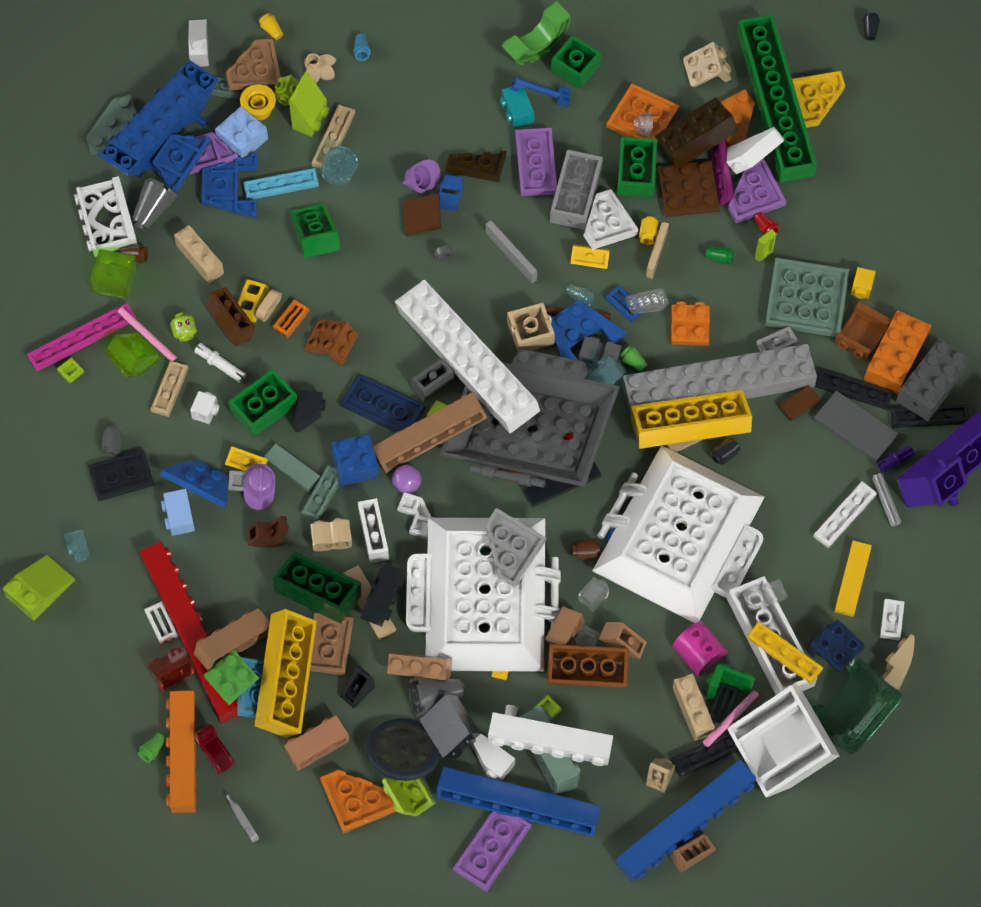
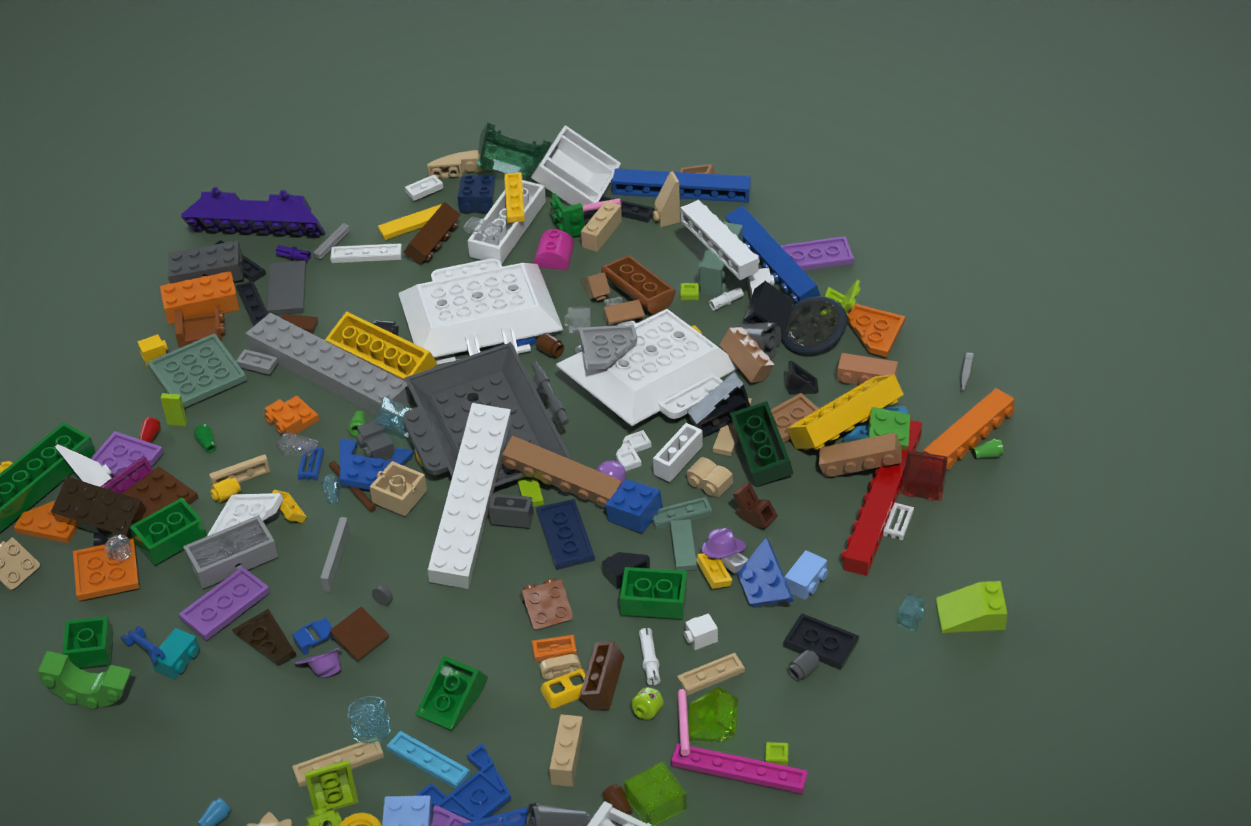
camera: 130 degrees left, 20 degrees down
(214, 749) = (944, 413): dark red animal -> none
(813, 571) = (432, 233): none -> reddish brown brick

